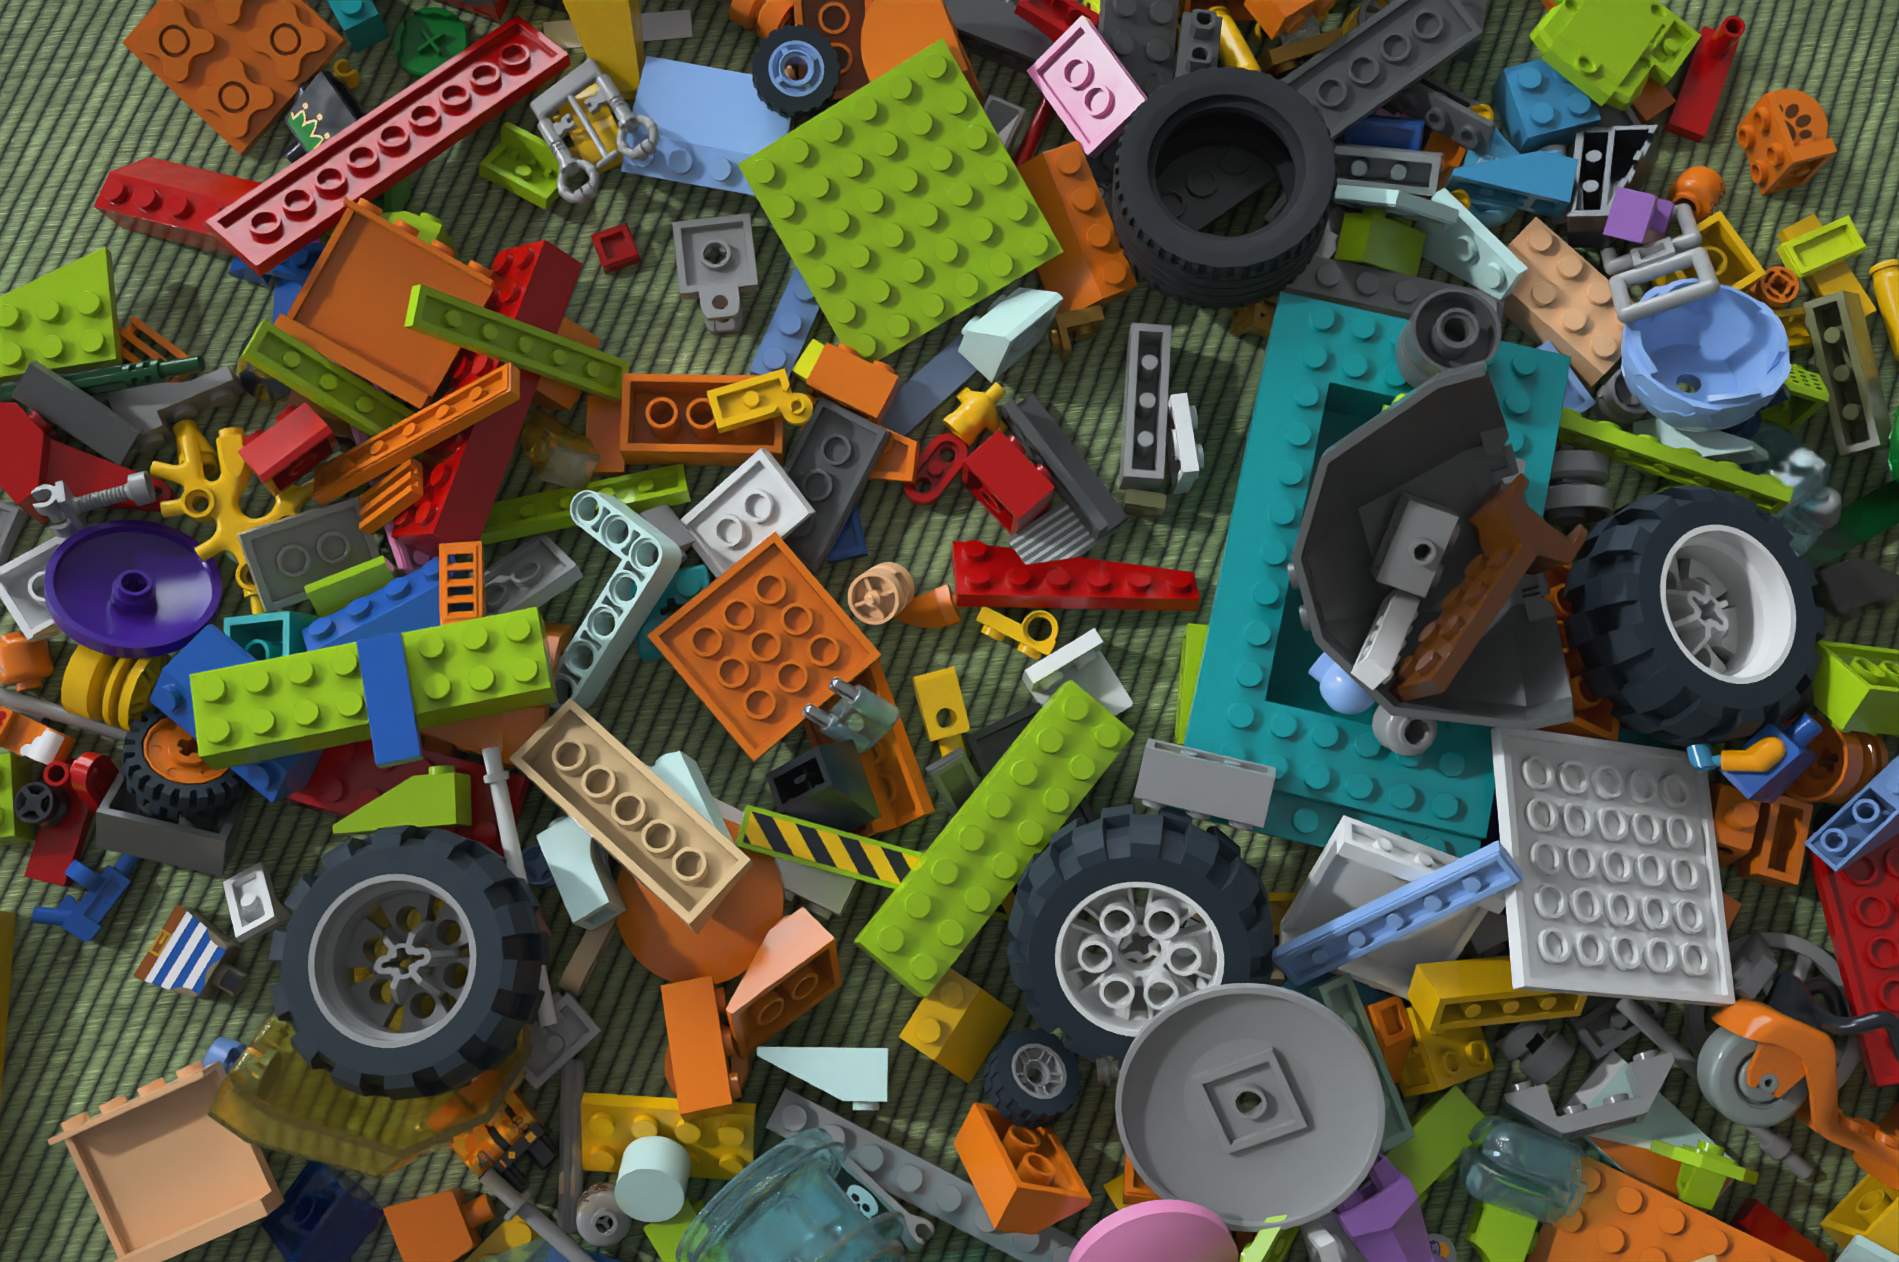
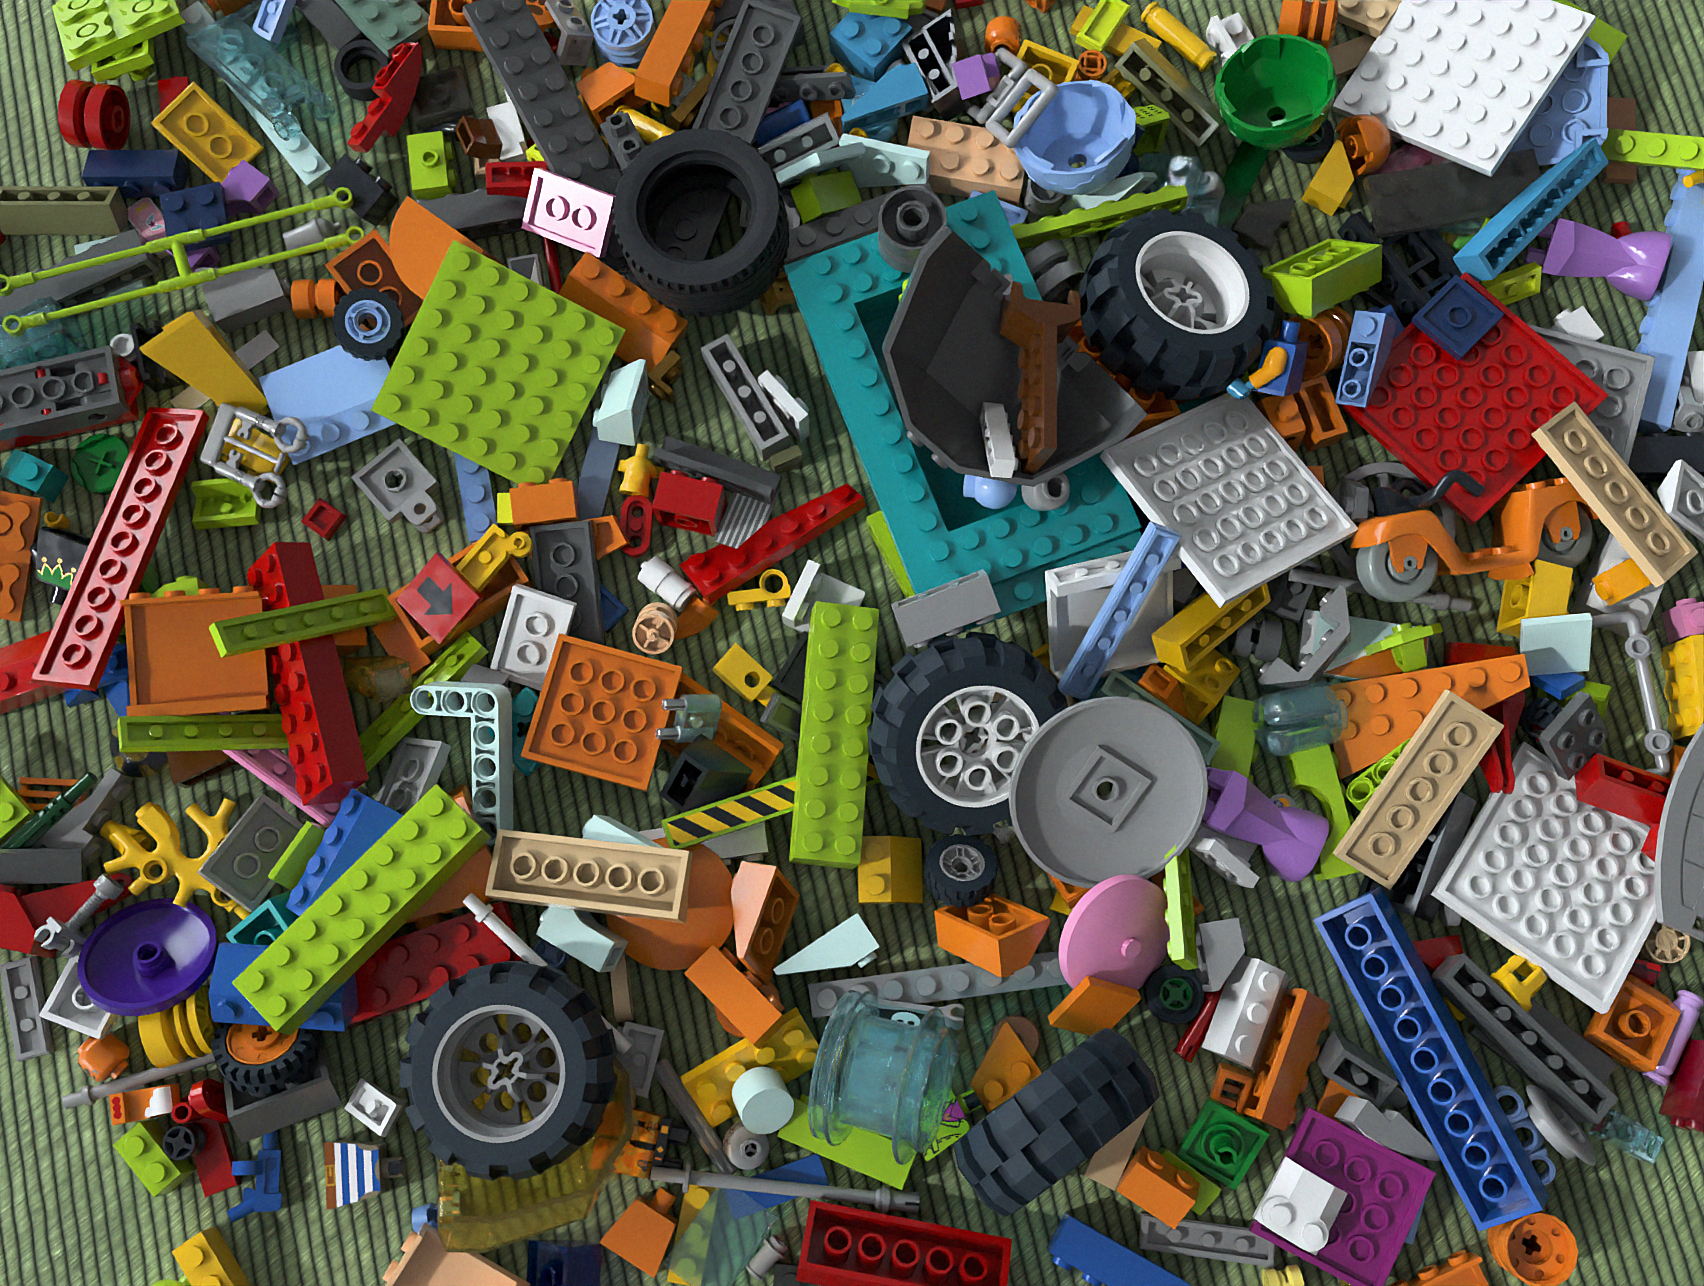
camera: 30 degrees left, 0 degrees up
(289, 448) = (193, 792): red slope -> none
(389, 700) = (380, 907): blue tile -> none
(391, 496) = (285, 778): orange tile -> none
(417, 433) = (275, 725): orange tile -> none
(423, 801) = (445, 960): lime slope -> none
(446, 583) = (364, 809): orange slope -> none
(675, 411) = (440, 598): none -> tile
(926, 552) = (666, 583): none -> white piece
(1415, 544) = (977, 370): light grey brick -> none

